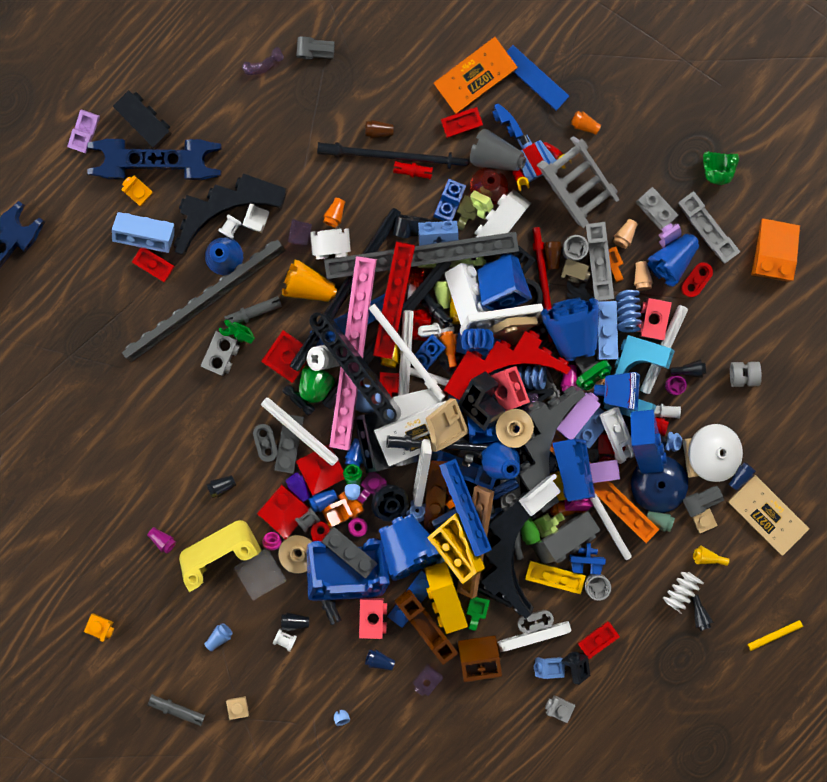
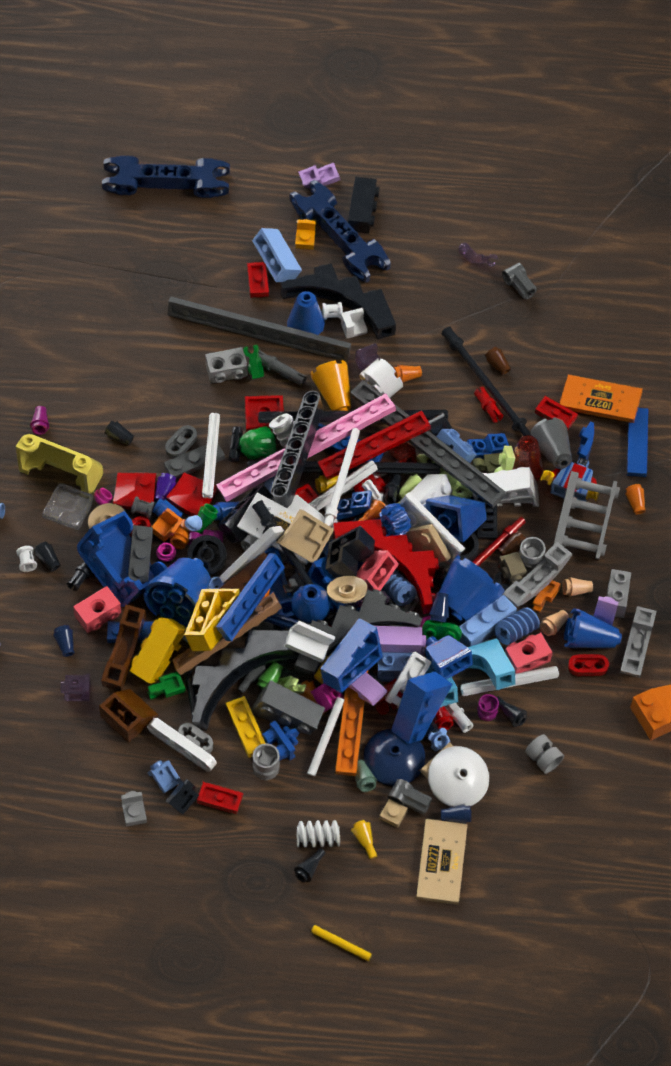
camera: 55 degrees right, 30 degrees down
(580, 366) = (440, 608): none -> dark blue cone

